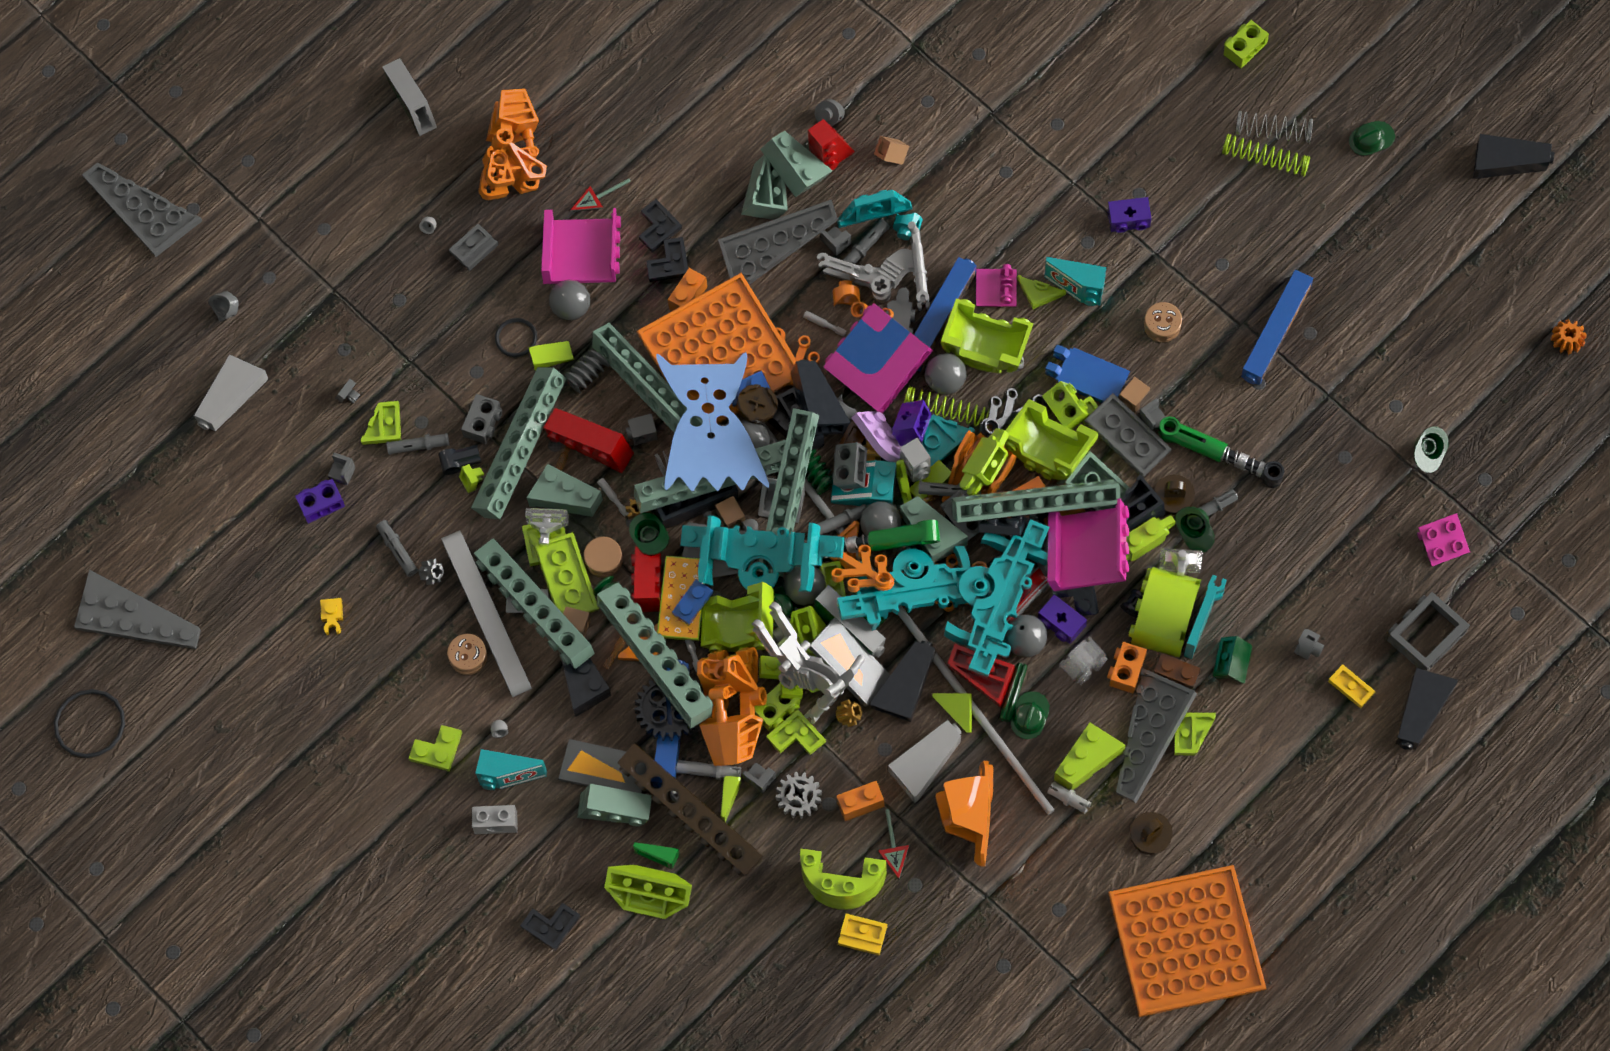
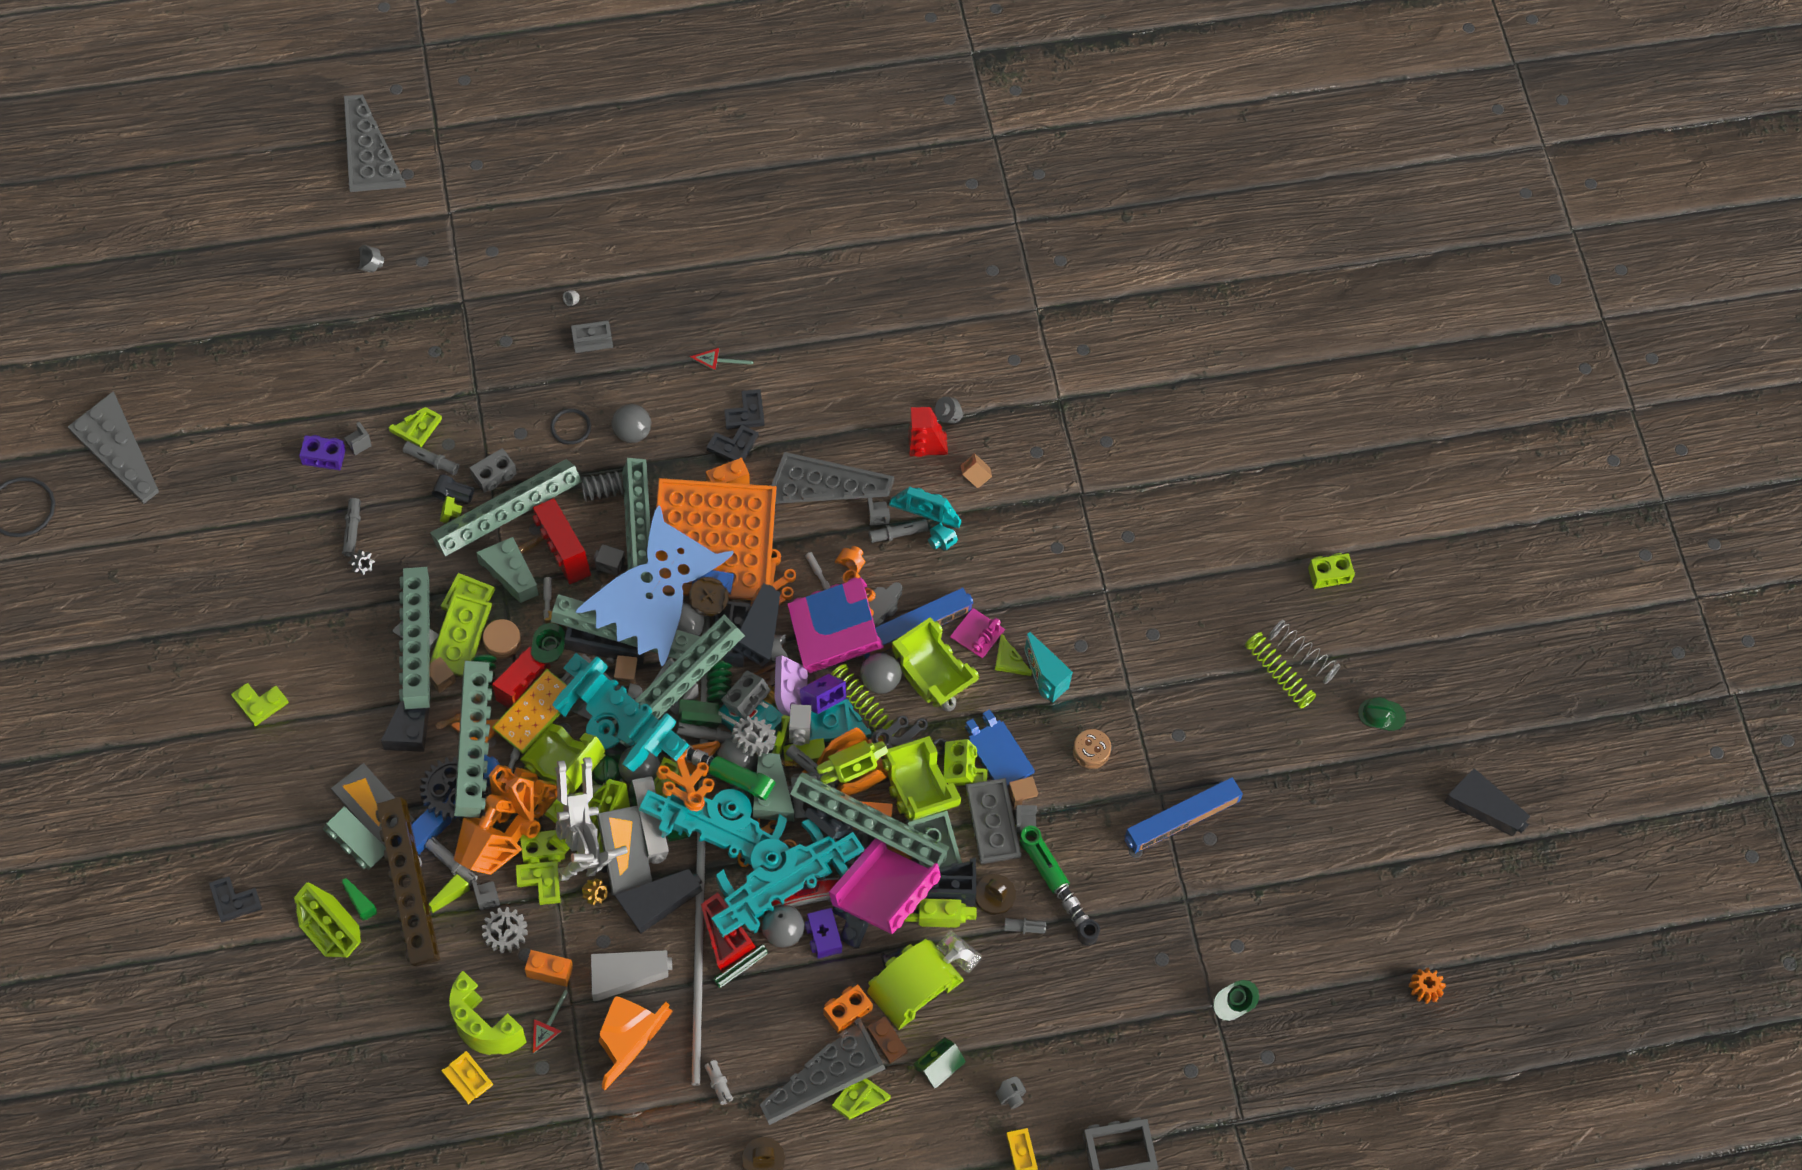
camera: 25 degrees right, 5 degrees down
(229, 391) = (320, 326): light grey slope -> none
(331, 612) = (263, 543): yellow plate -> none
(348, 392) = (409, 383): dark grey tile -> none
(410, 96) = (632, 192): light grey slope -> none
(467, 654) = (338, 644): medium nougat head -> none
(486, 613) = (377, 623): light grey beam -> none
(494, 819) = (256, 786): light grey brick -> none
(499, 729) = (317, 718): light grey hinge -> none
(507, 770) = (293, 753): teal slope -> none
(511, 122) = (691, 260): orange piece -> none
(546, 521) = (476, 581): clear piece -> none
(550, 354) = (585, 456): lime slope -> none
(580, 249) = (669, 389): dark pink panel -> none
(692, 602) = (538, 719): blue plate -> none
(765, 192) = (850, 437): sand green wedge -> none
(794, 163) = (886, 430): sand green wedge -> none
(821, 507) = (699, 713): none -> dark green panel
(886, 495) = (753, 736): none -> light grey gear
(888, 274) = (898, 564): light grey piece -> none
(958, 706) = (686, 947): lime tile -> none
(1030, 715) = (740, 993): dark green piece -> none
(1083, 660) = (813, 978): clear brick -> none
(1087, 756) = (757, 1058): lime wedge -> none
(1119, 214) = (1139, 645): dark purple brick -> none
(1195, 528) = (990, 931): dark green piece -> none
(1212, 594) = (940, 1007): teal tile -> none
(1443, 539) = (1192, 1083): dark pink hinge -> none

